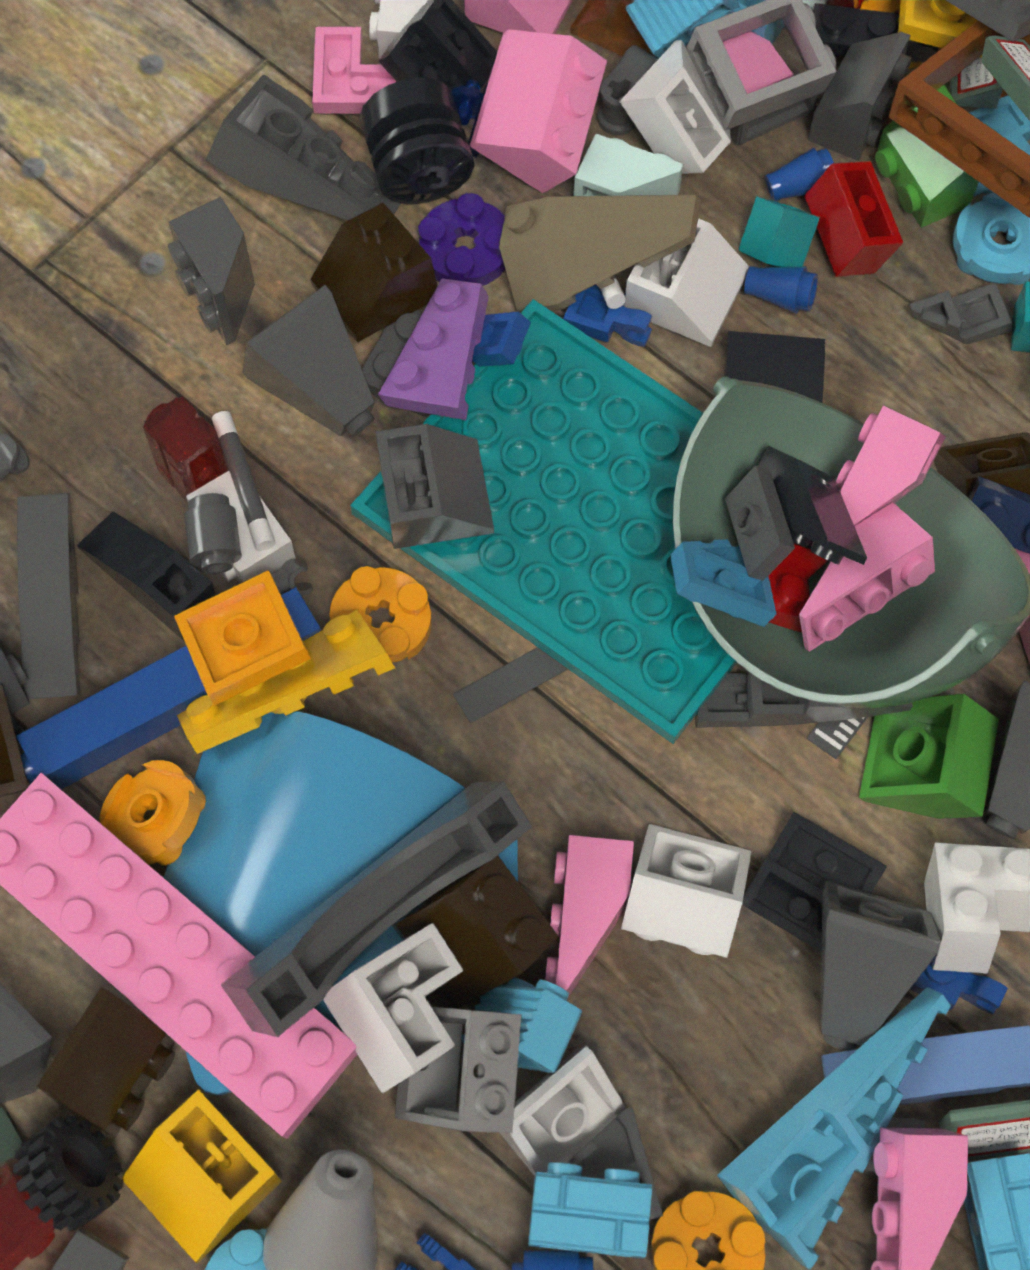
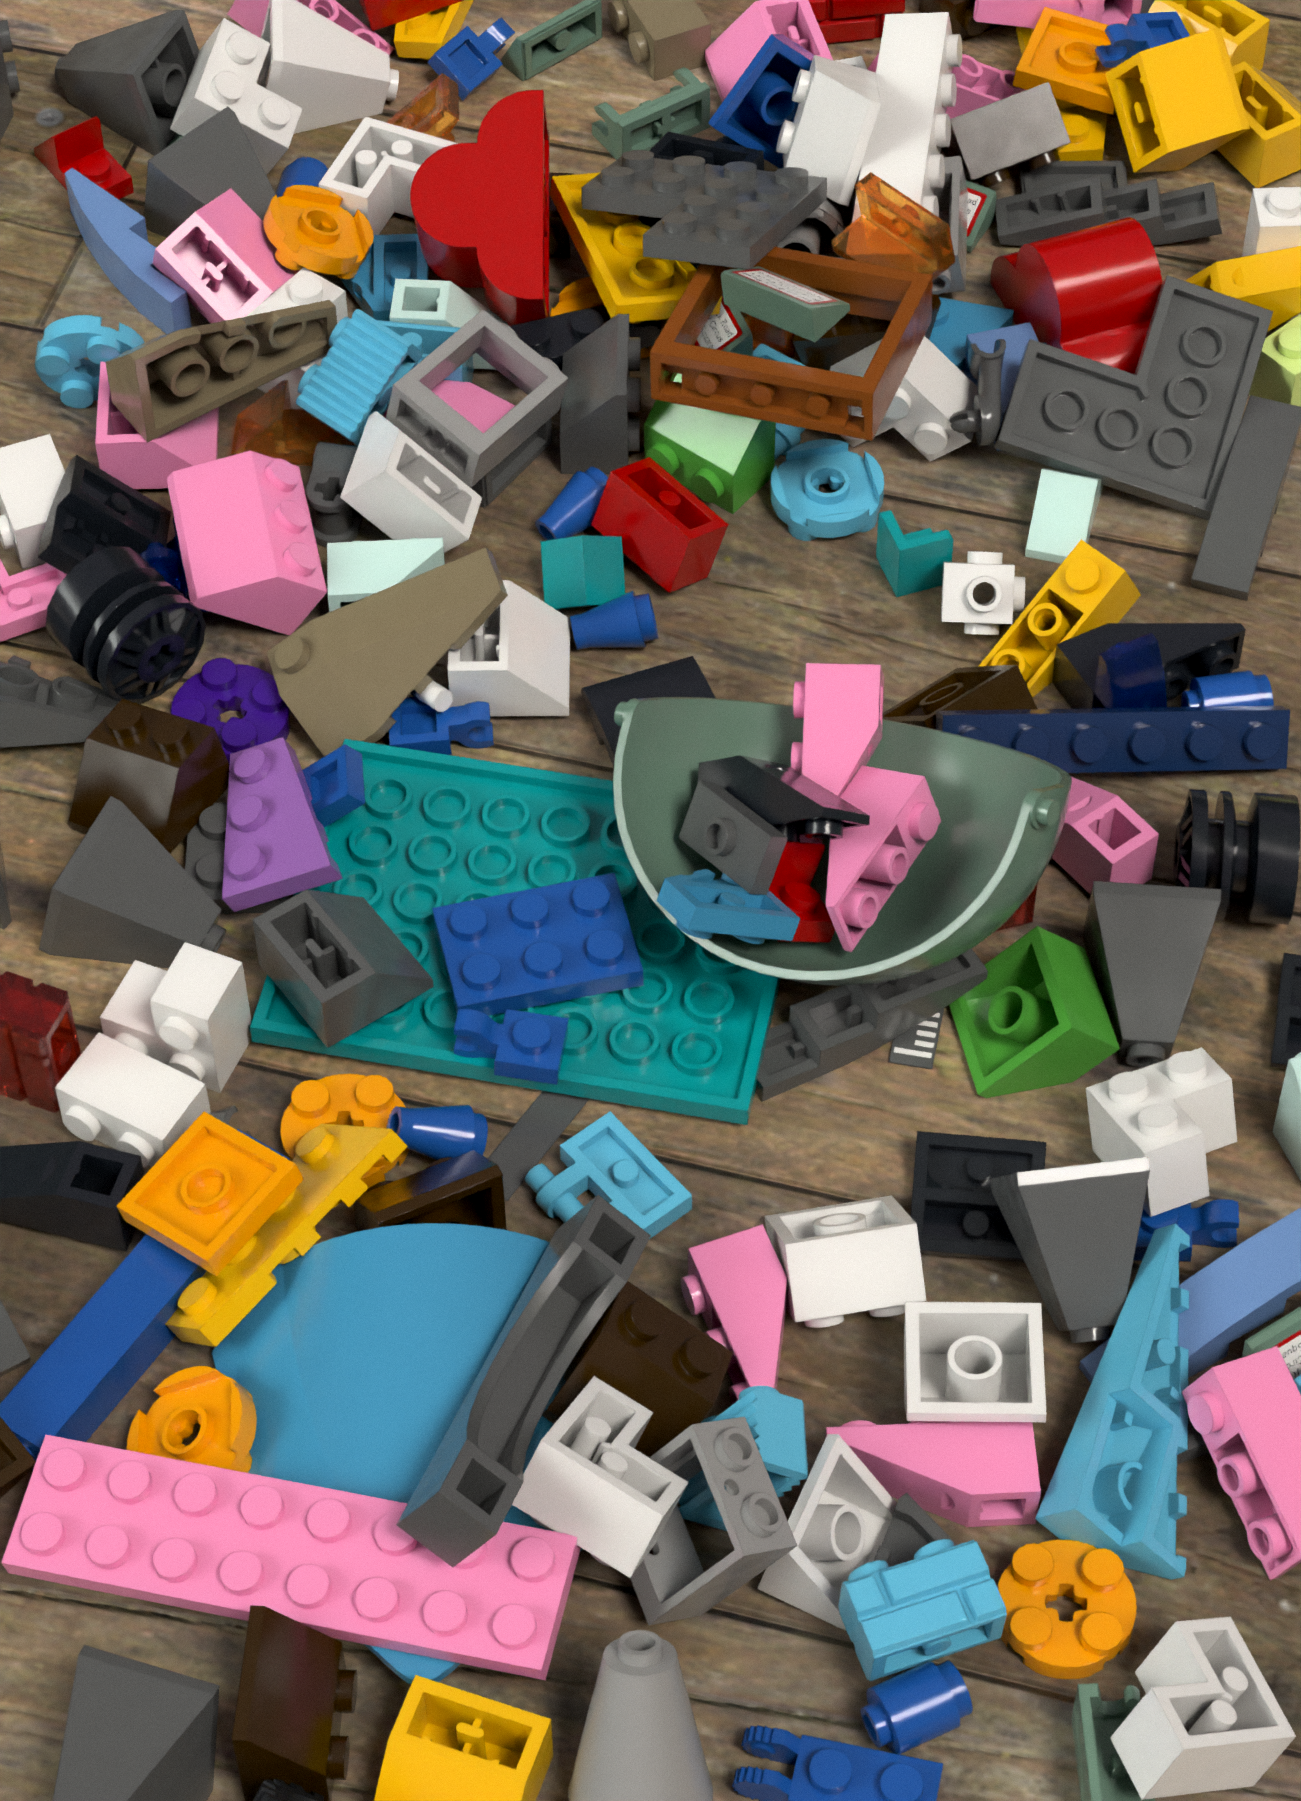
camera: 25 degrees left, 15 degrees down
(212, 533) = (114, 1104): dark grey brick -> none
(243, 481) = (124, 1047): dark grey bar -> none
(304, 479) = (185, 1016): none -> white brick
(404, 714) = (447, 1191): none -> dark brown slope
(442, 652) = (440, 1130): none -> blue cone
(533, 612) = (523, 1046): none -> blue plate
(558, 746) = (619, 1170): none -> medium azure plate
(585, 534) = (538, 946): none -> blue plate
(686, 1107) = (954, 1469): none -> bright pink slope
(729, 1036) = (974, 1362): none -> white slope
(967, 316) = (831, 580): dark grey slope -> none

